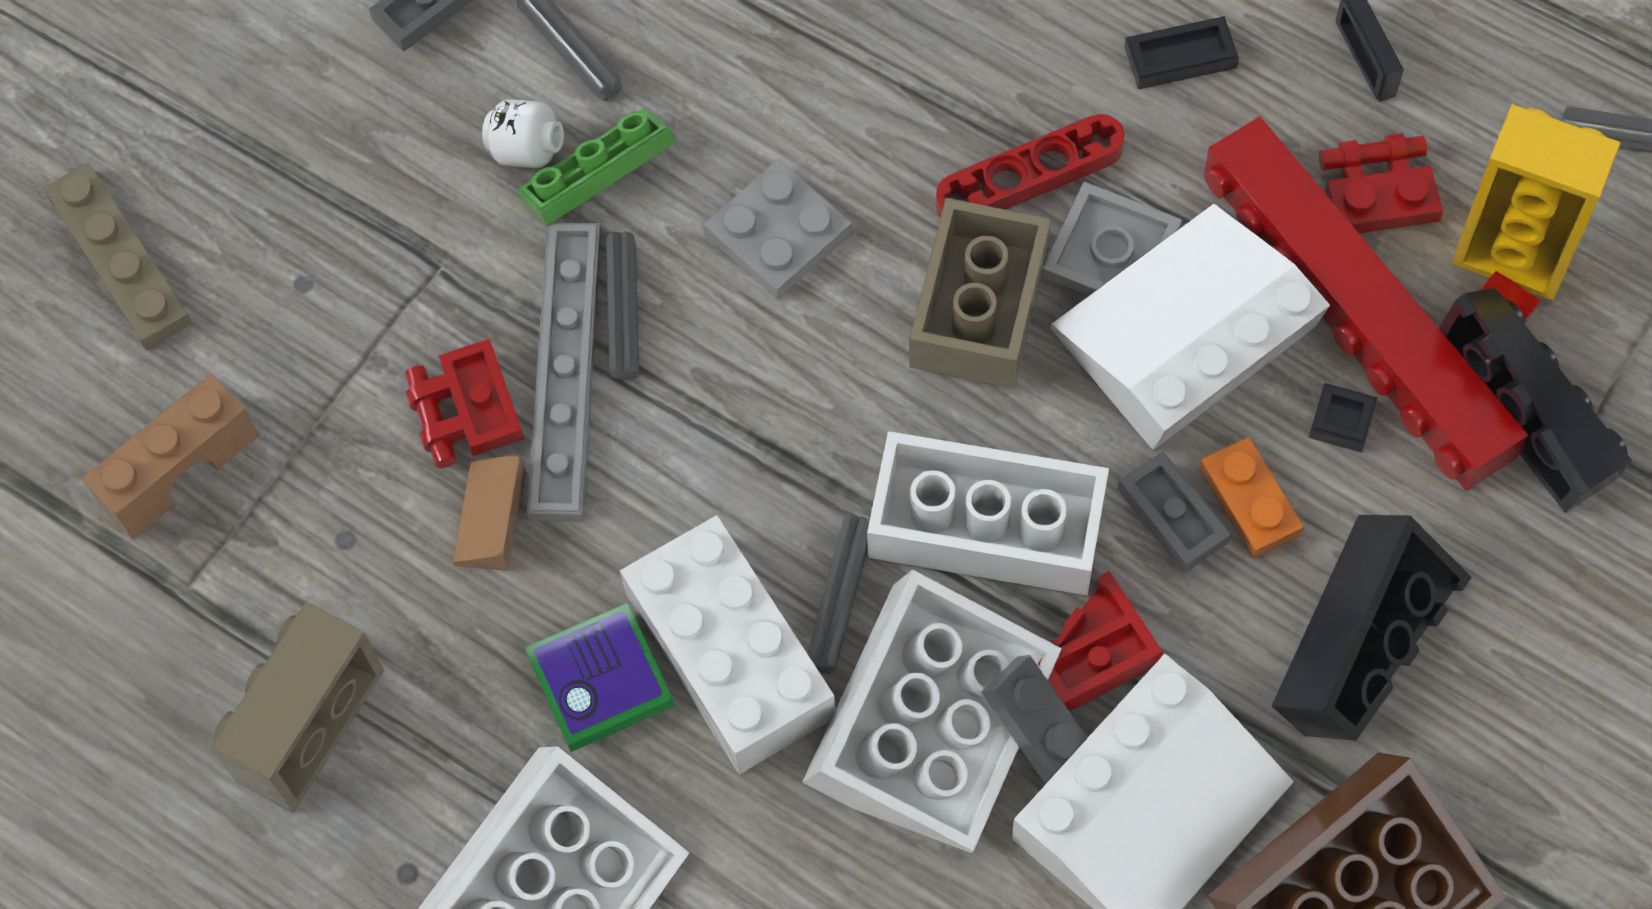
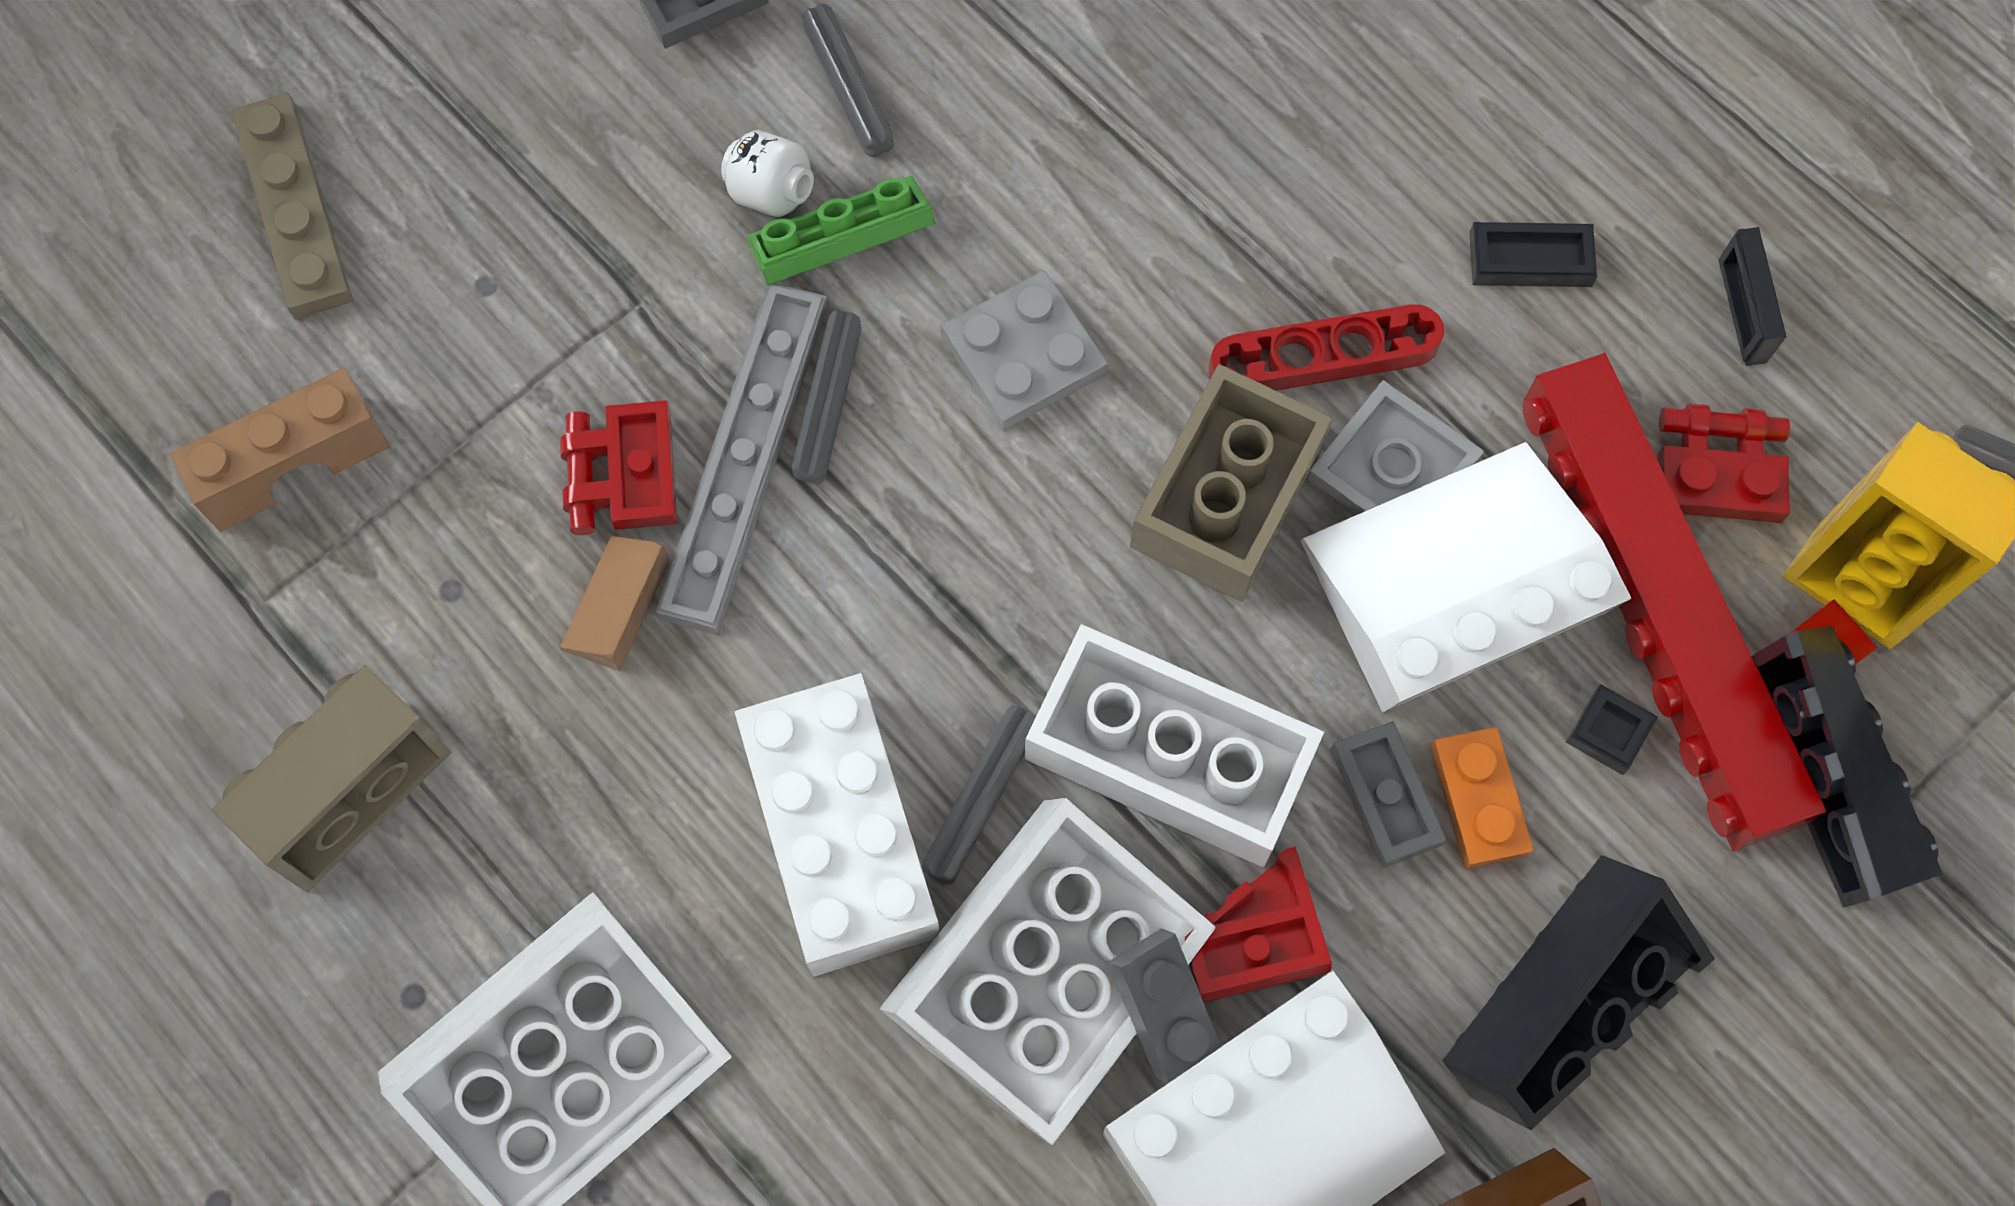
camera: 10 degrees right, 5 degrees up
(599, 677) = (684, 825): slope -> none

